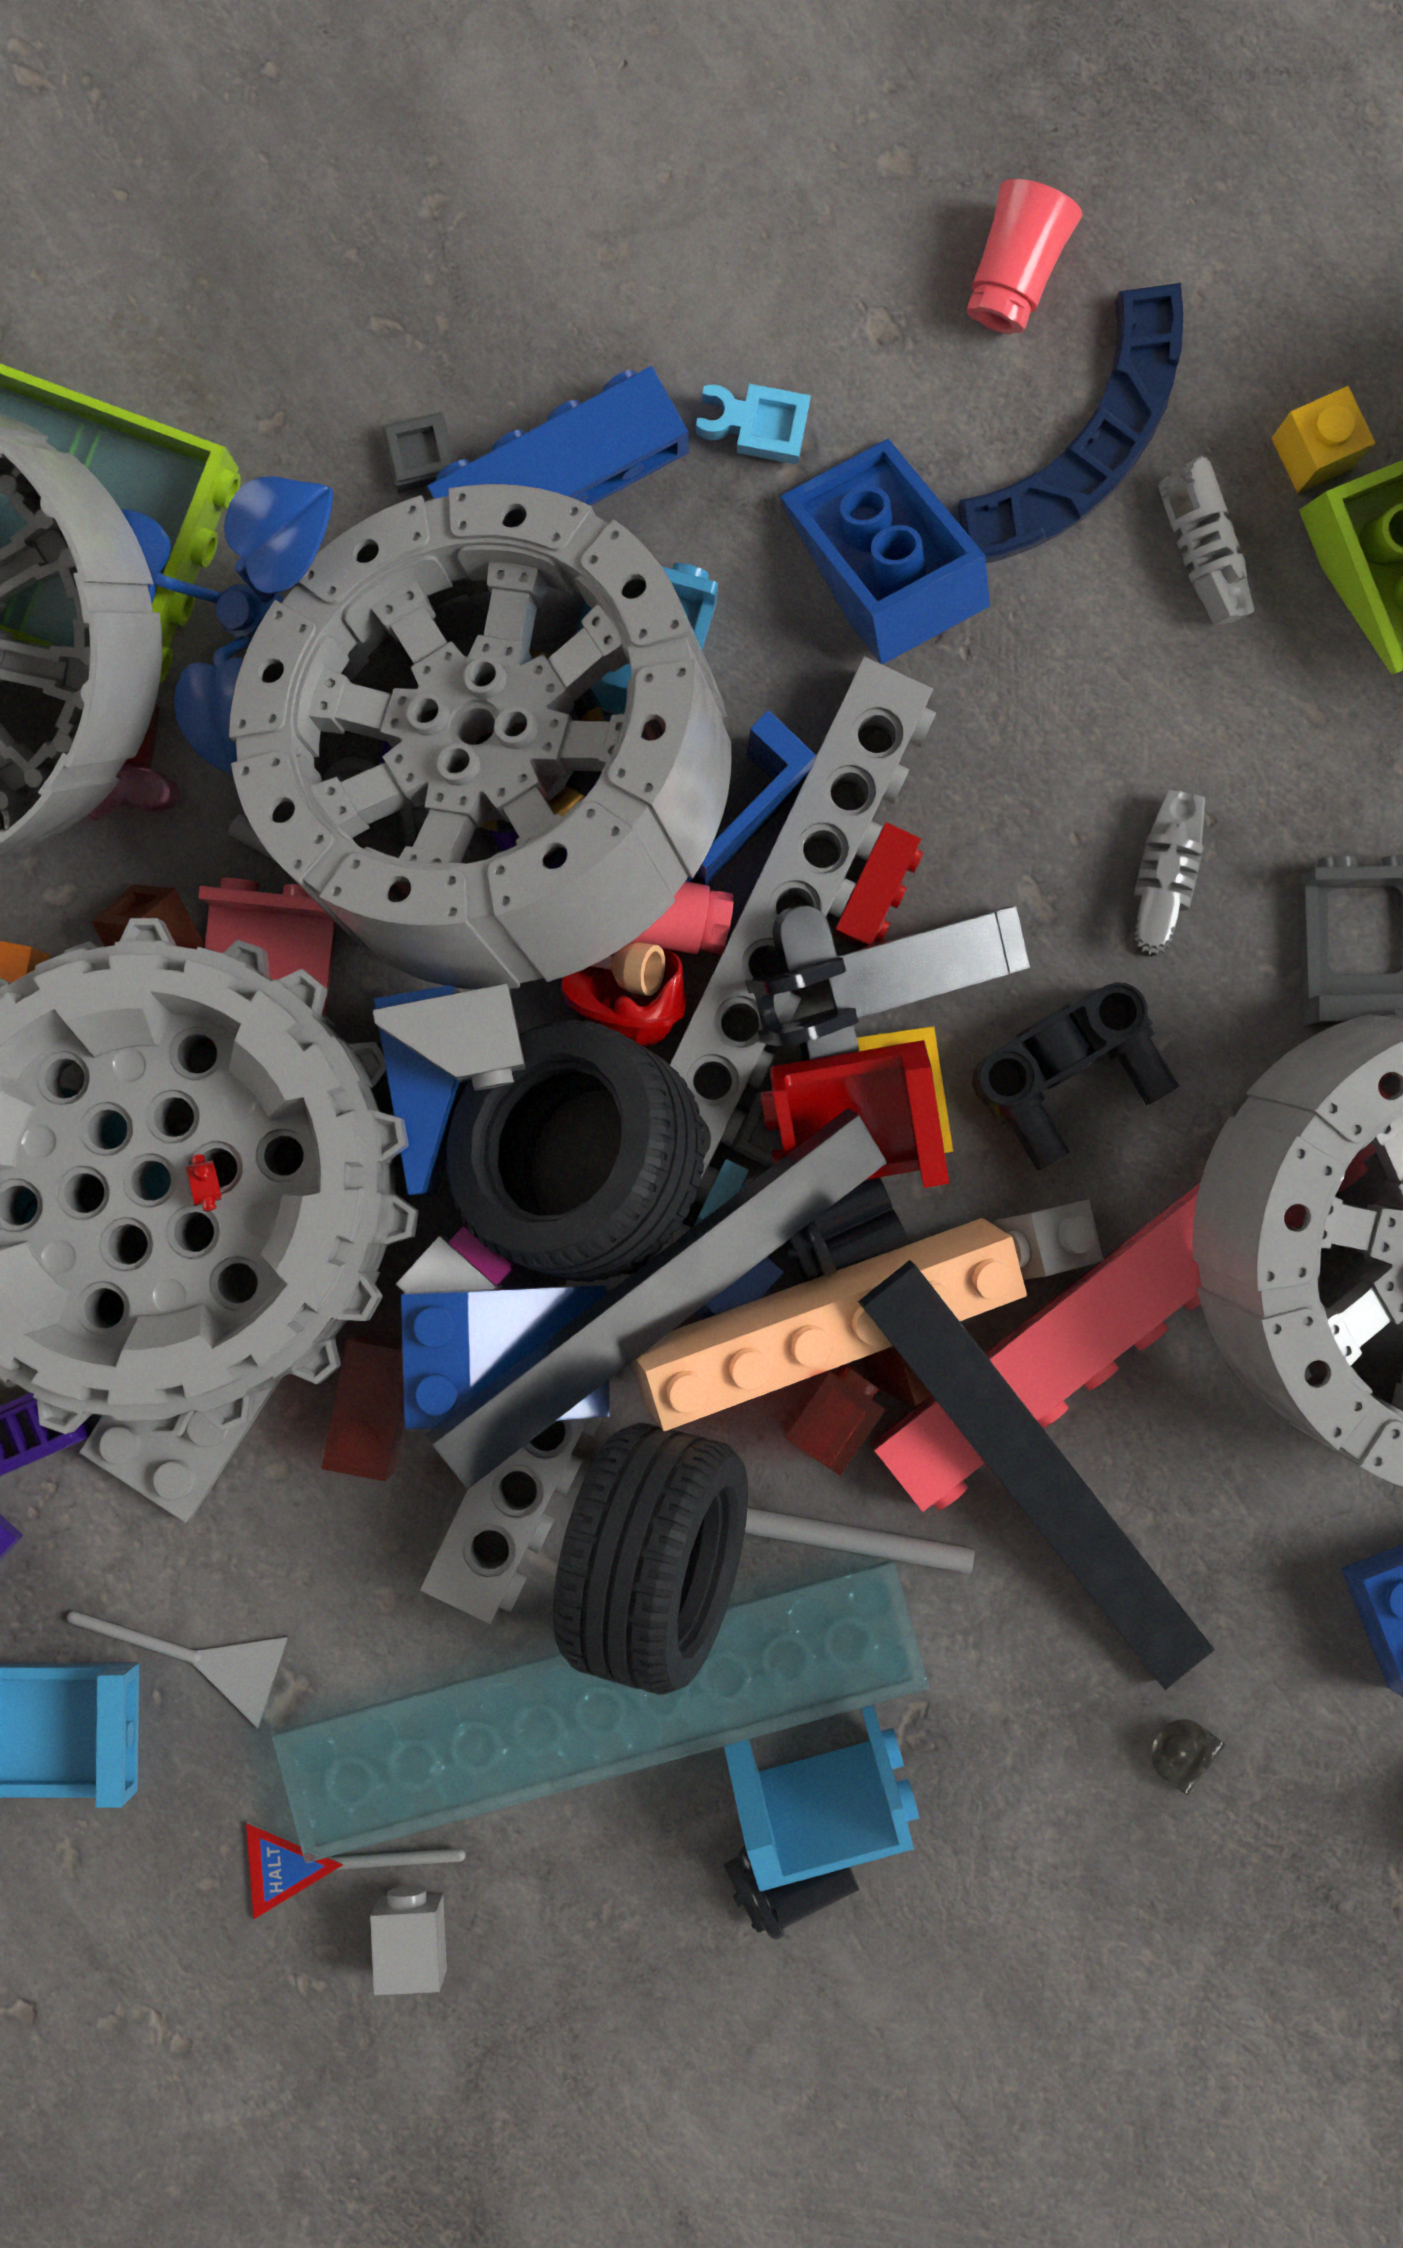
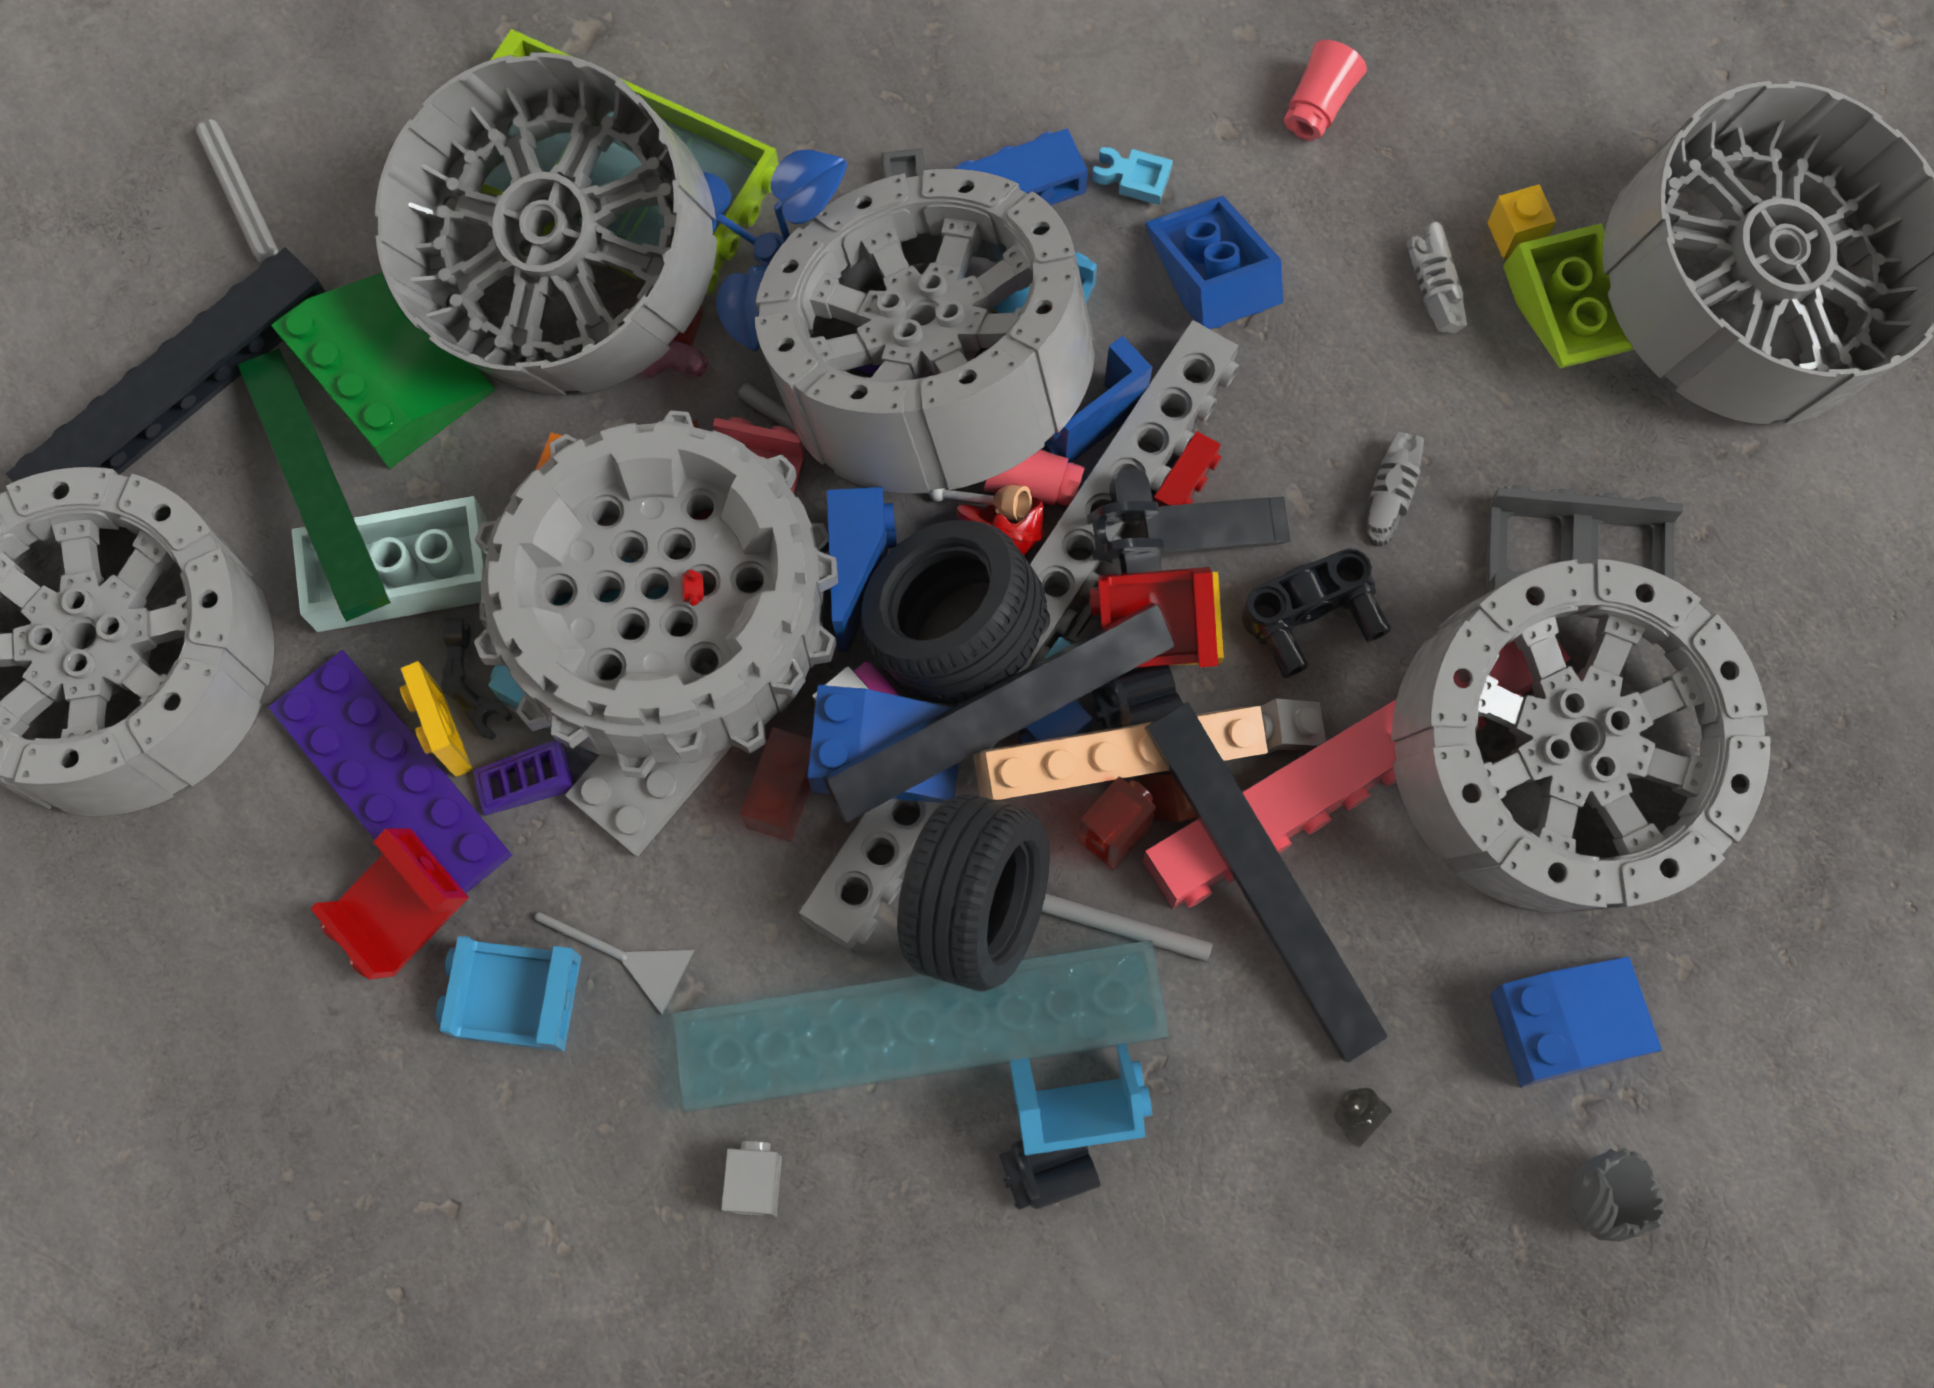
camera: 10 degrees right, 15 degrees down
(281, 1871) = (665, 1121): piece -> none
(461, 1033) = (883, 511): light grey slope -> none
(1108, 445) = (1369, 218): dark blue tile -> none

